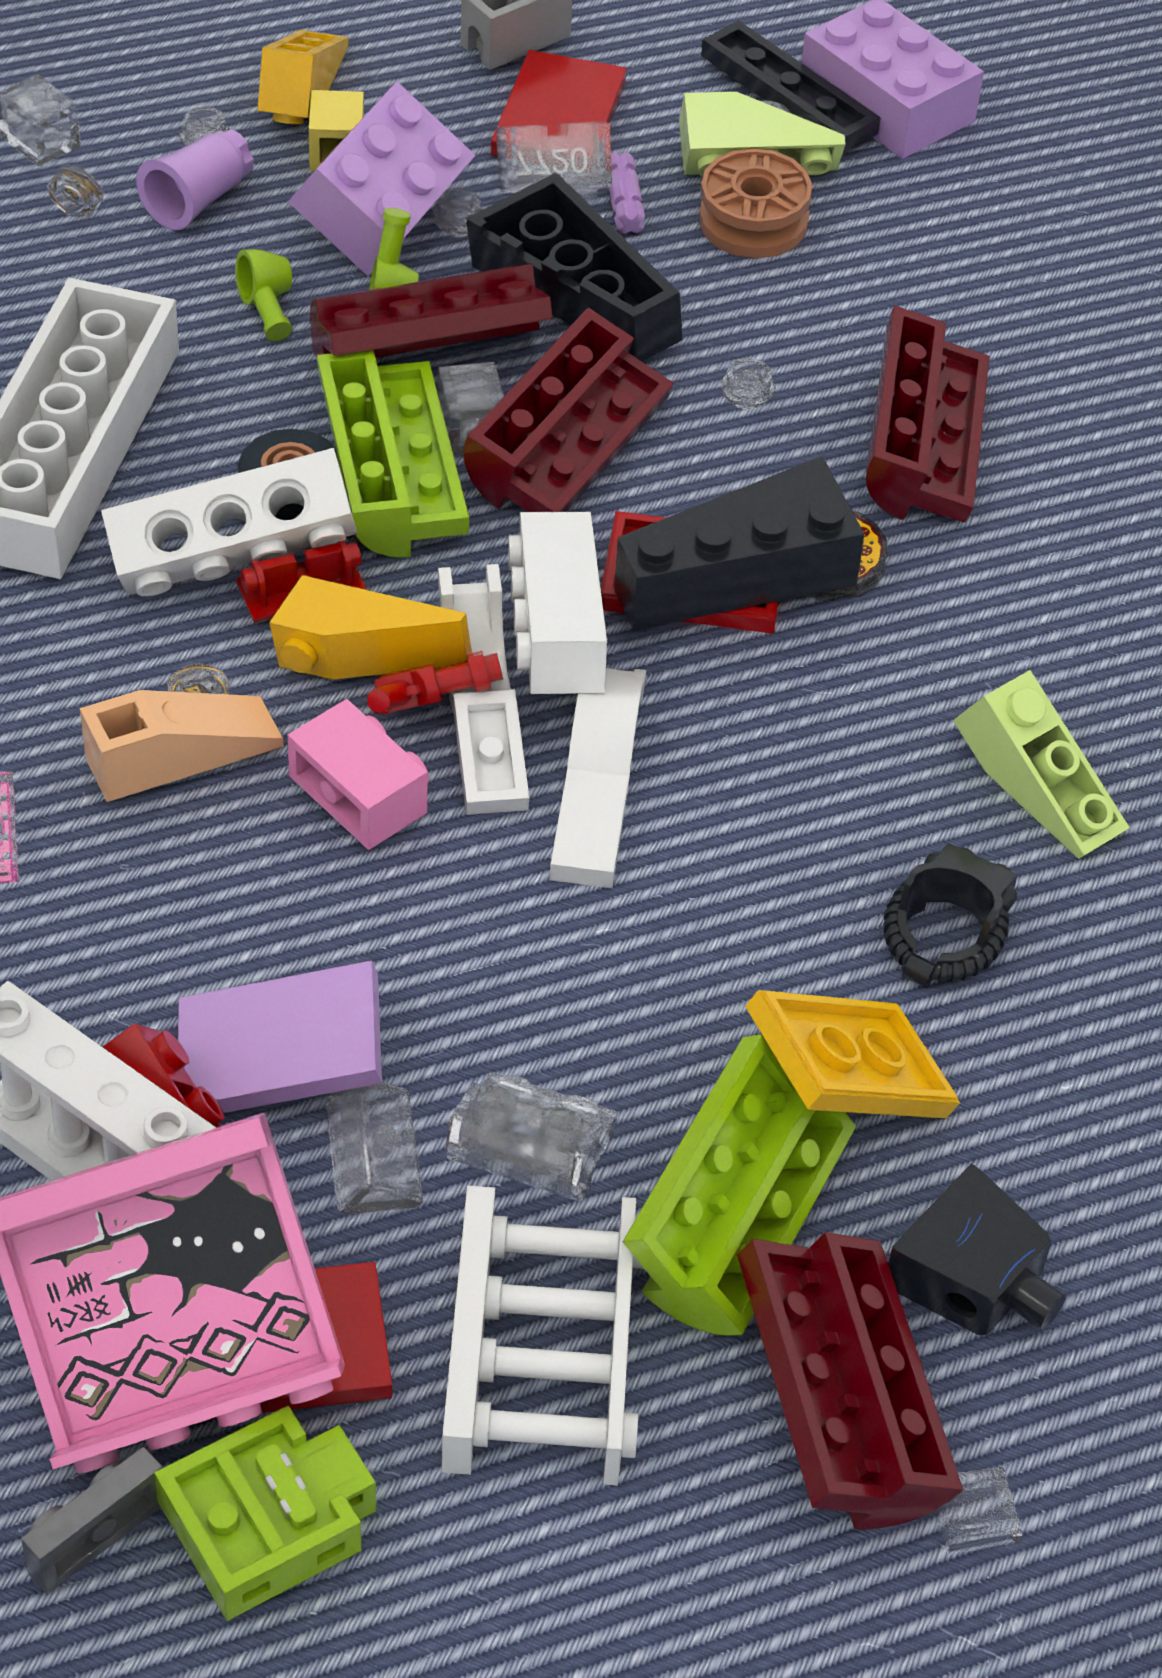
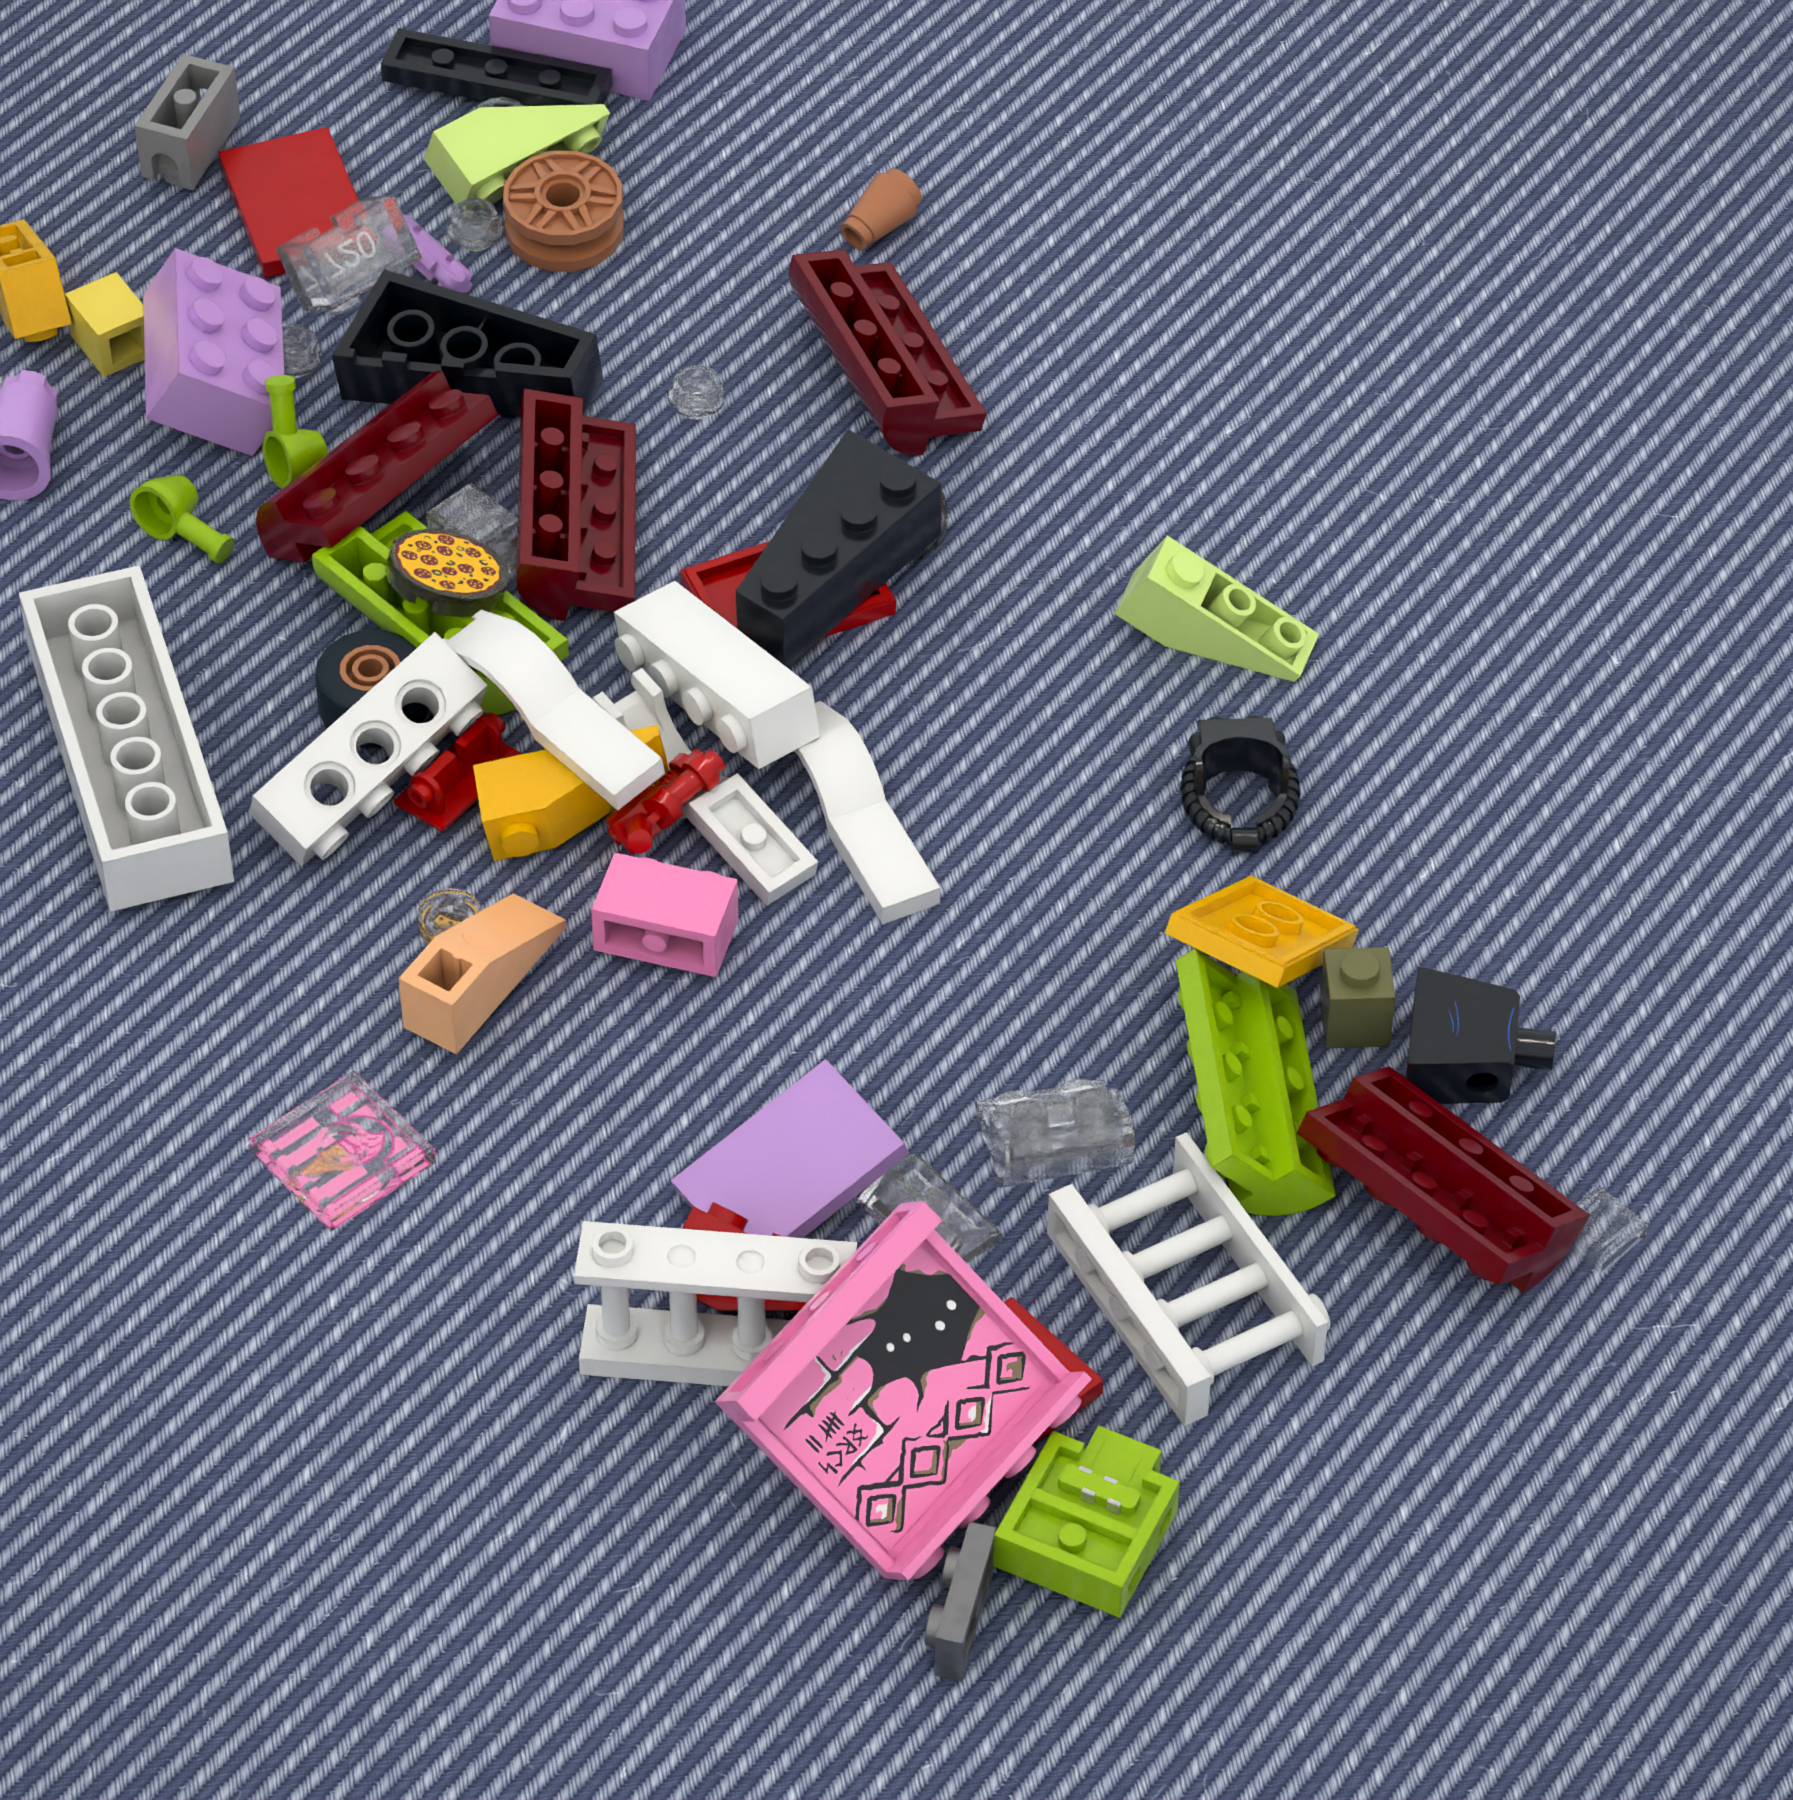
camera: 30 degrees left, 0 degrees up
(389, 561) = (557, 710): none -> white piece
(405, 415) = (448, 571): none -> tile
(678, 184) = (475, 224): none -> clear plate
(901, 1162) = (1357, 997): none -> olive brick
(1017, 314) = (883, 207): none -> nougat cone

